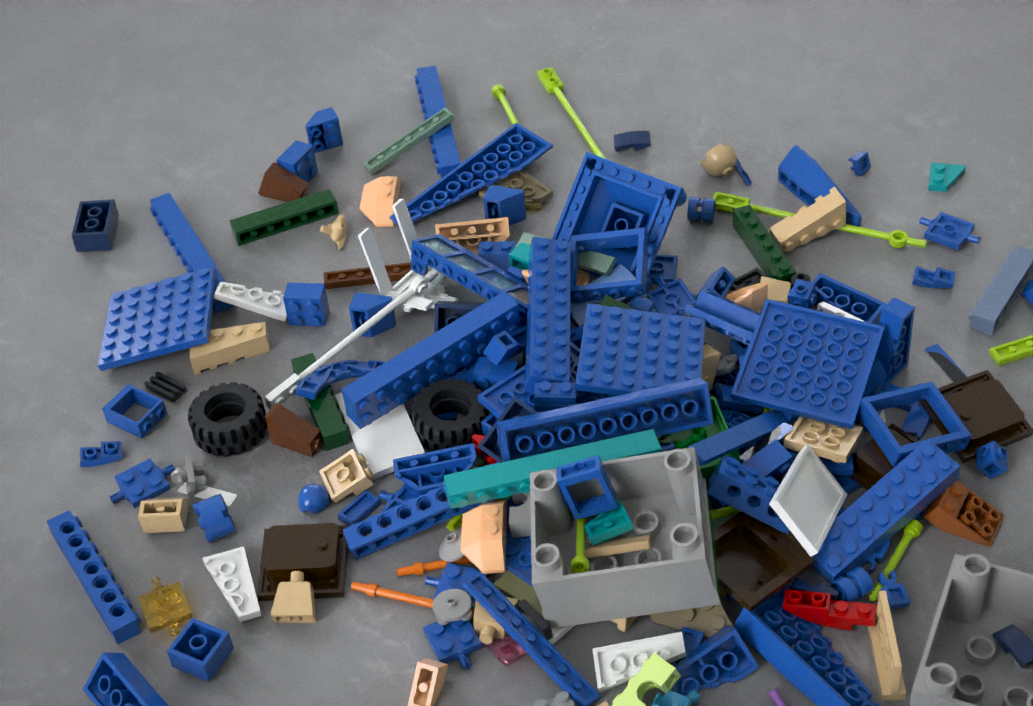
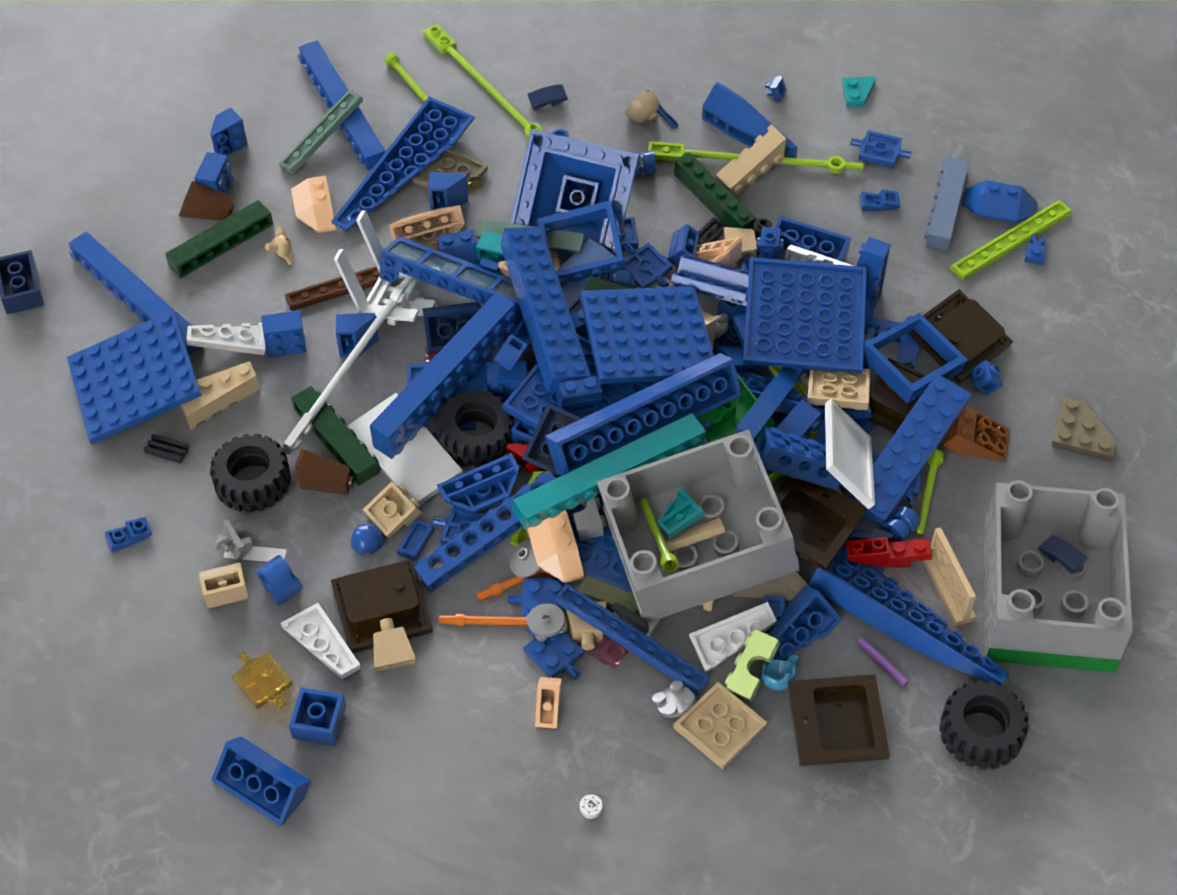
camera: 20 degrees left, 10 degrees up
(94, 577) = (225, 711): blue brick -> none
(128, 396) = (140, 464): blue window -> none
(142, 482) = (184, 556): blue plate -> none
(334, 372) = (348, 399): blue tile -> none
(591, 468) = (639, 478): blue window -> none
(777, 434) = (790, 401): sticker -> none
(895, 592) = (936, 520): blue plate -> none
(945, 362) = (916, 287): black sticker -> none

